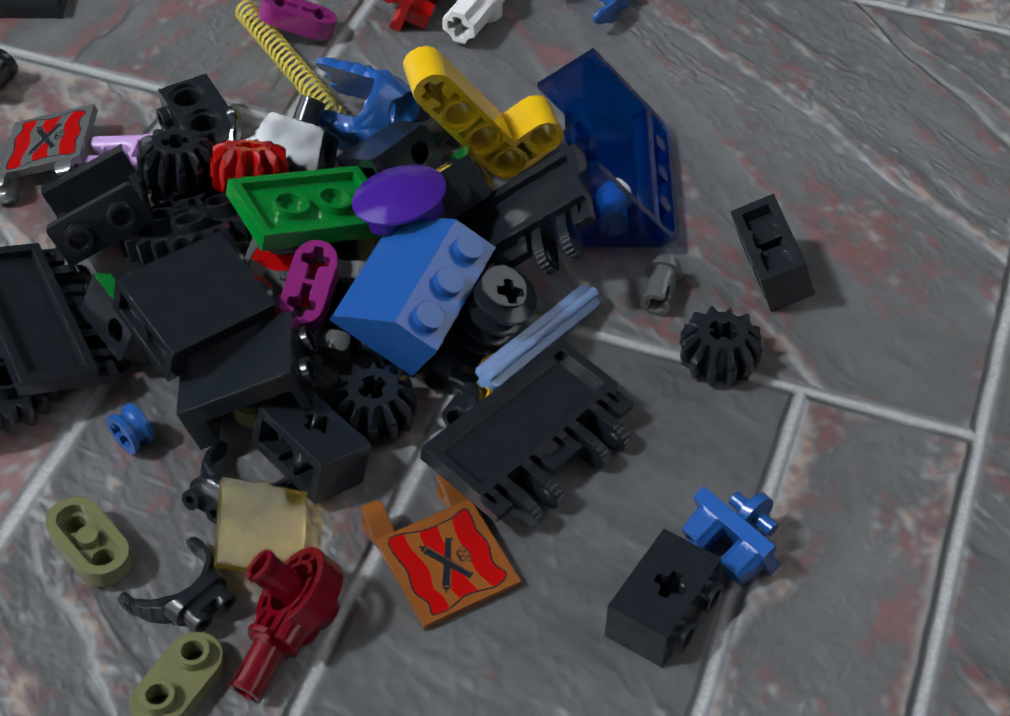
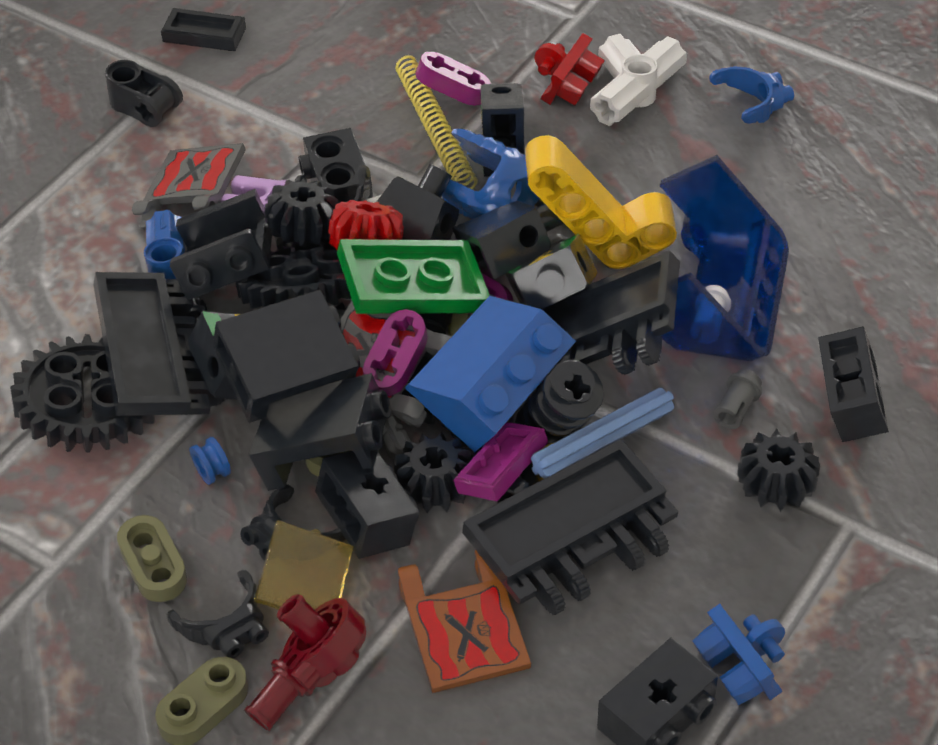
camera: 15 degrees right, 0 degrees up
(30, 214) = (162, 243): none -> blue piece
(360, 39) = (503, 115): none -> black torso
(399, 197) = (495, 279): dark purple dish -> none
(444, 381) = (500, 461): none -> magenta plate

